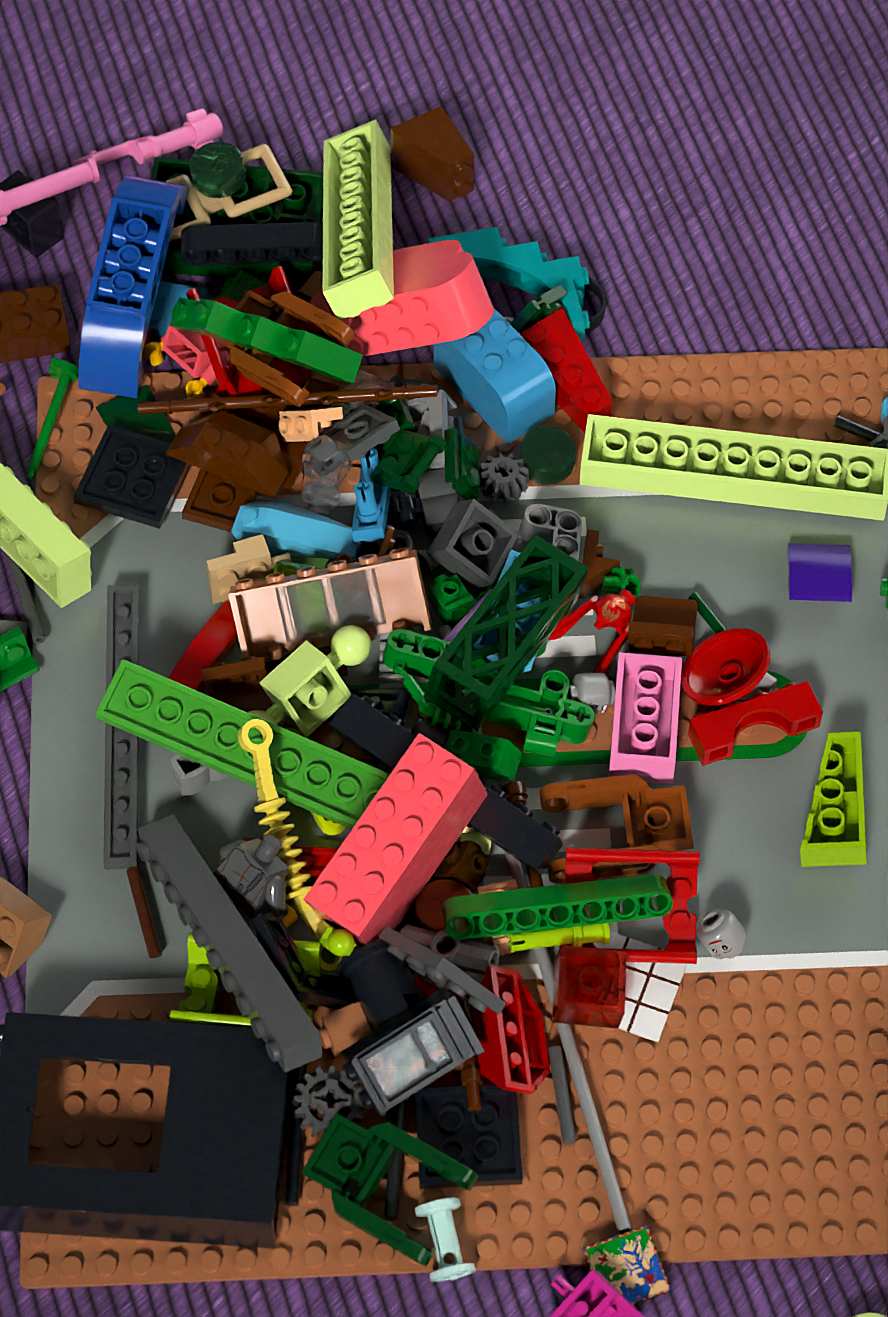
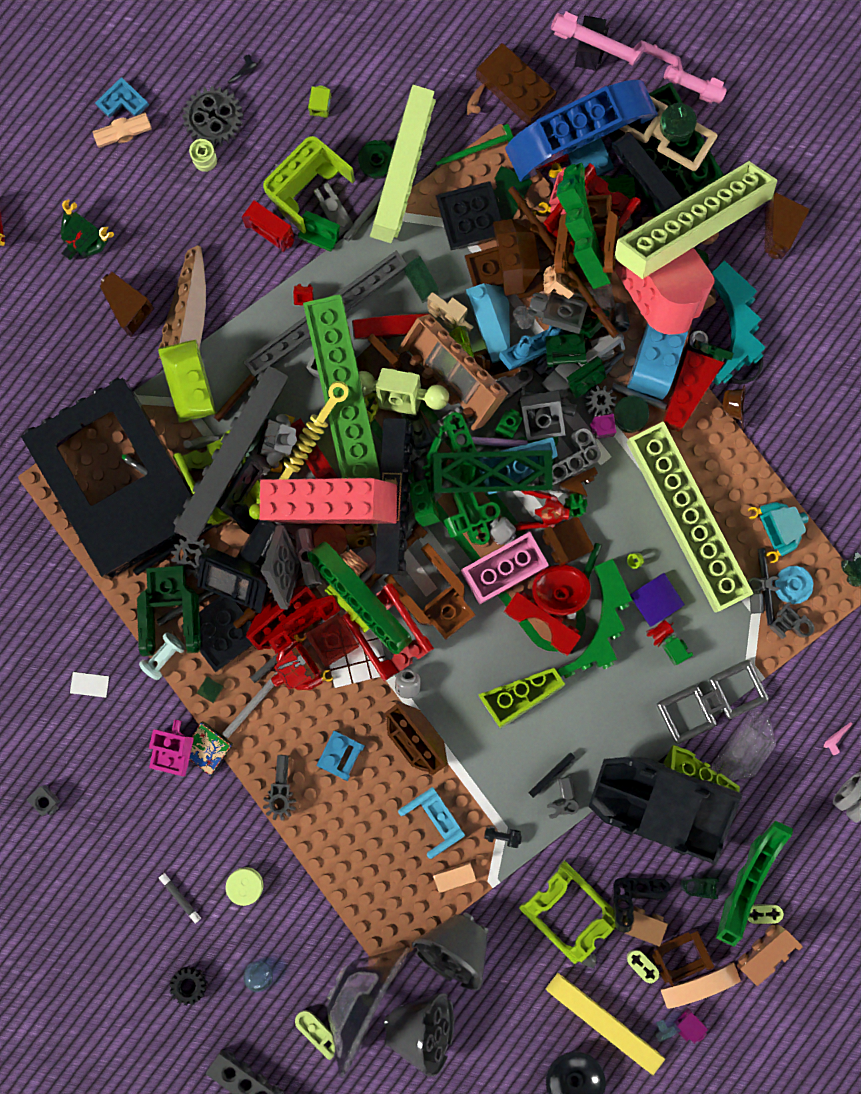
camera: 55 degrees right, 25 degrees up
(74, 734) = (302, 294): none -> red tile
(78, 939) = (187, 380): none -> lime windscreen
(142, 1099) = (137, 465): none -> dark grey piece
(171, 995) = (199, 442): none -> light grey bar
(172, 580) = (421, 279): none -> clear green brick
(514, 443) = (649, 400): none -> flat silver bar
(530, 1002) = (301, 619): none -> red slope
(540, 488) = (603, 426): none -> magenta brick
(542, 1208) = (210, 689): none -> clear green plate
(594, 1058) = (297, 668): none -> red torso
(626, 338) = (733, 404): none -> reddish brown piece
(754, 566) = (630, 560): none -> lime hinge
(754, 1098) = (334, 752): none -> dark azure plate
(760, 1200) = (281, 790): none -> dark grey gear
(781, 619) = (613, 595): none -> green arch
(809, 973) = (416, 738): none -> reddish brown wedge
(824, 374) = (782, 525): none -> teal torso
(867, 585) = (660, 632): none -> red piece

